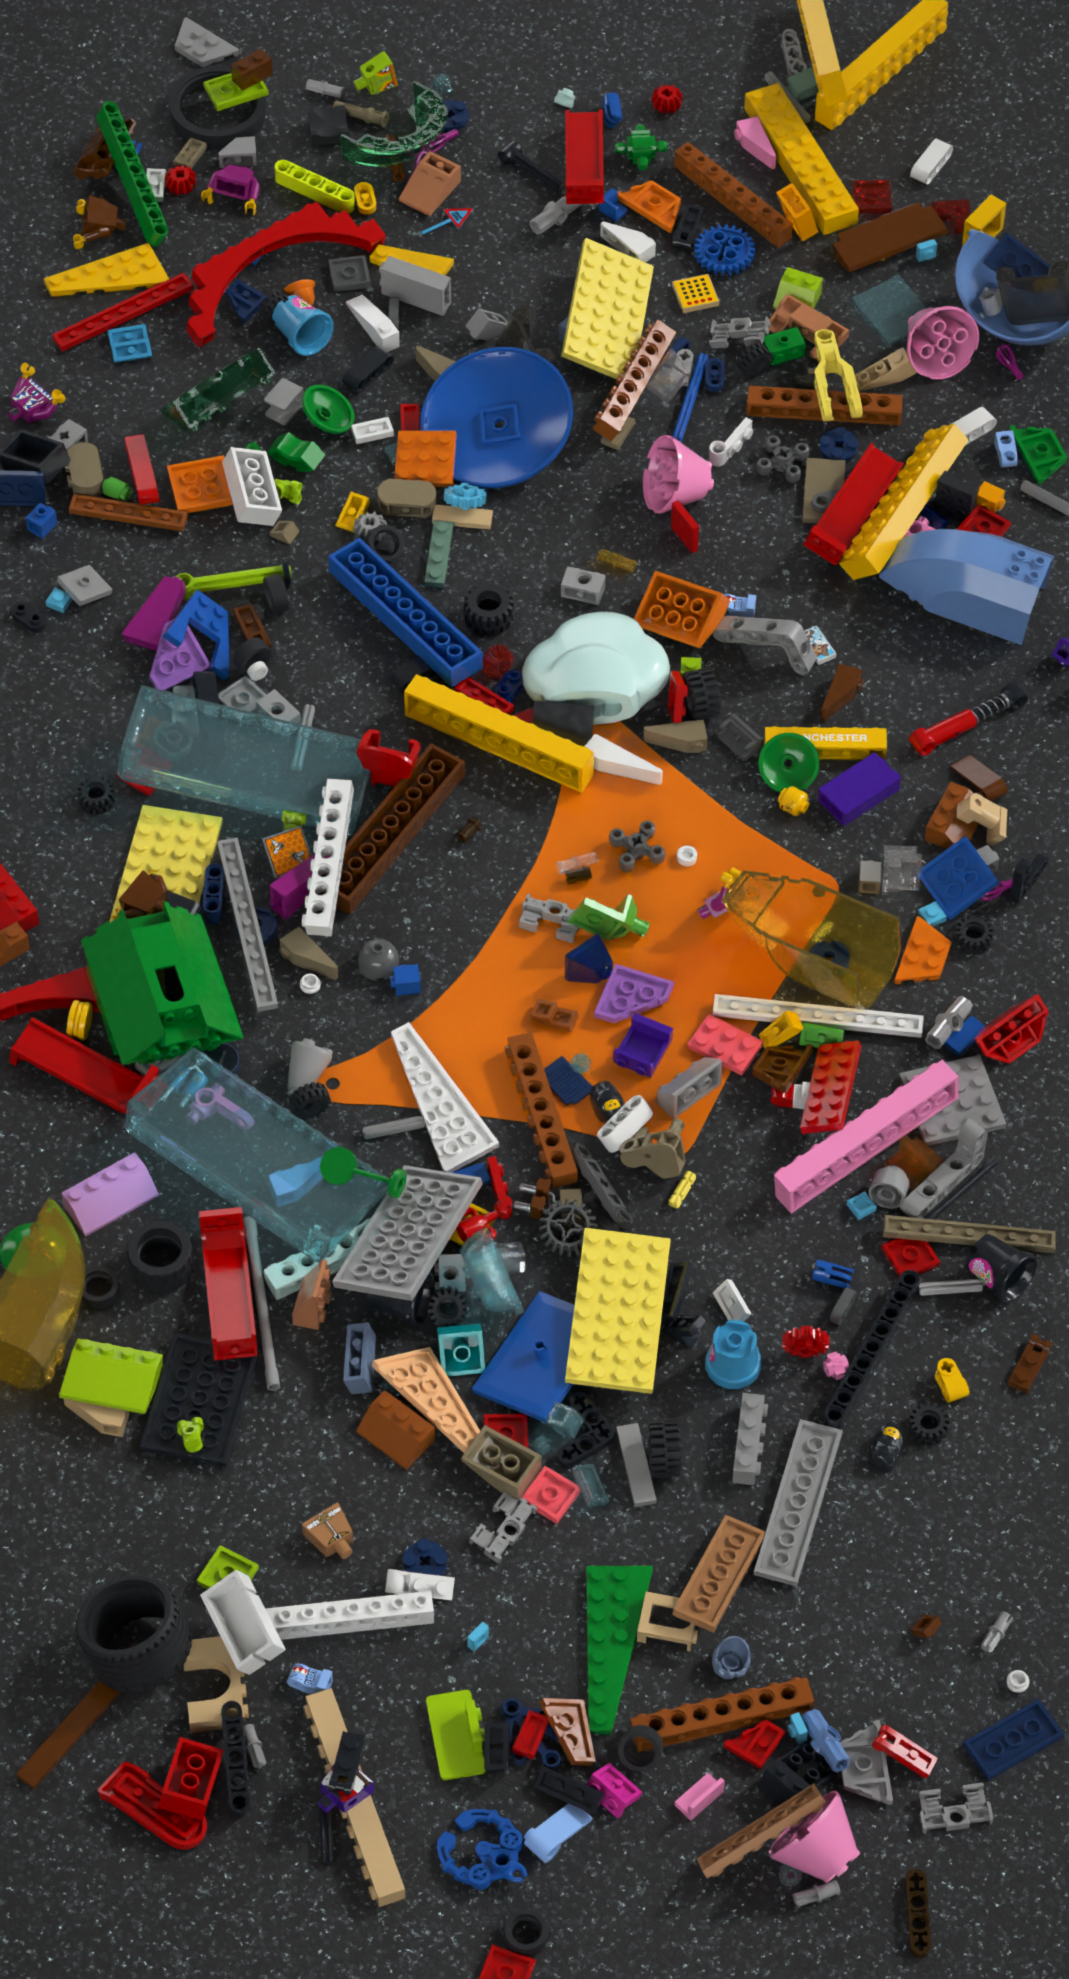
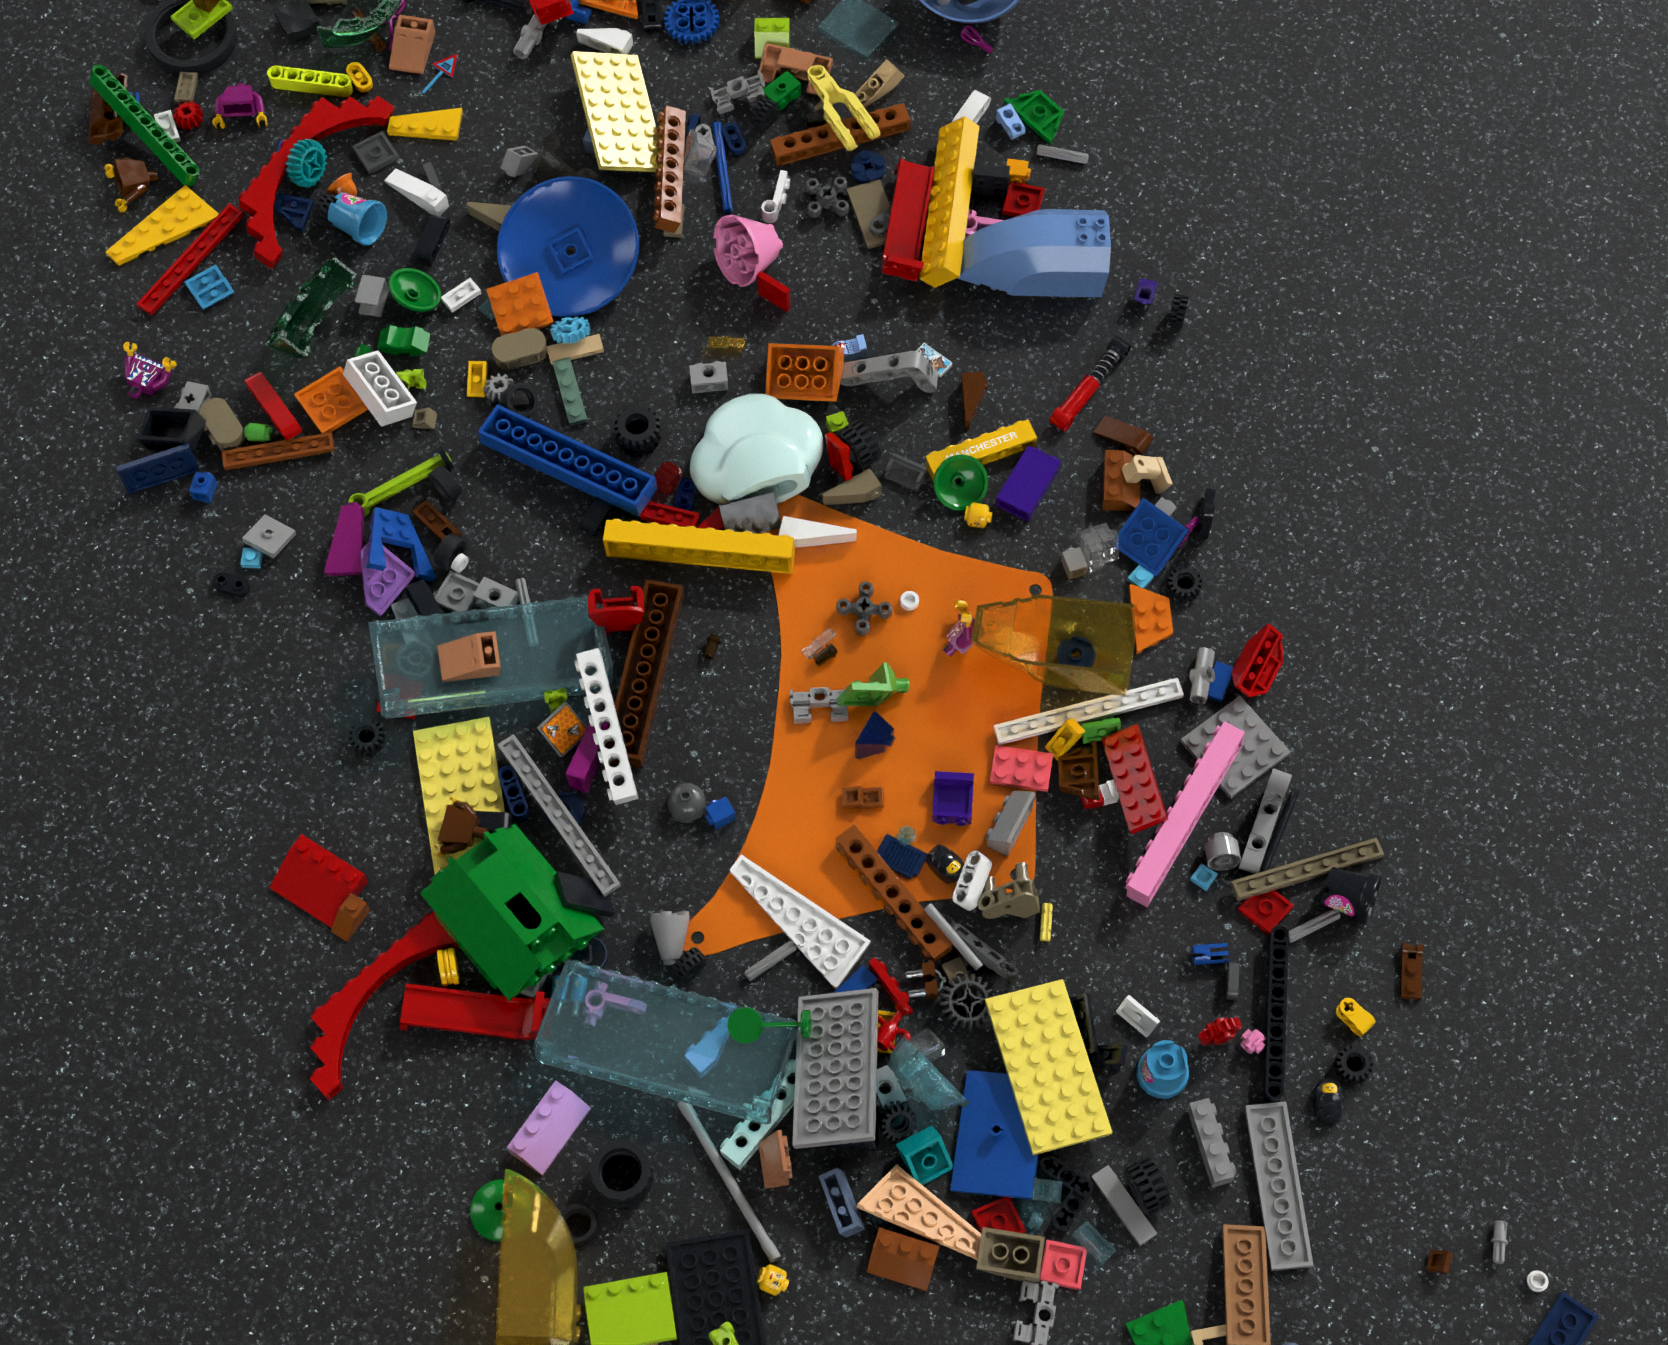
camera: 20 degrees left, 10 degrees up
(226, 752) = (469, 657): none -> nougat slope
(228, 1283) = (695, 1178): red panel -> none
(237, 1000) = (582, 895): none -> black tile
(239, 153) = (229, 72): light grey slope -> none
(261, 1401) = (772, 1279): none -> yellow head
(274, 258) = (306, 162): none -> teal gear
(306, 954) = (622, 822): dark tan slope -> none
(310, 983) = (636, 849): white plate -> none
(410, 417) = (488, 272): red tile -> none
(415, 285) = (440, 145): light grey brick -> none
(581, 1165) = (953, 936): none -> light grey piece
(631, 993) = (921, 751): medium lavender plate -> none
(695, 293) = (684, 68): tile -> none
(915, 1160) = (1232, 817): clear orange bracket -> none
(937, 520) = (982, 208): clear blue plate -> none
(941, 341) = (915, 41): bright pink cone -> none

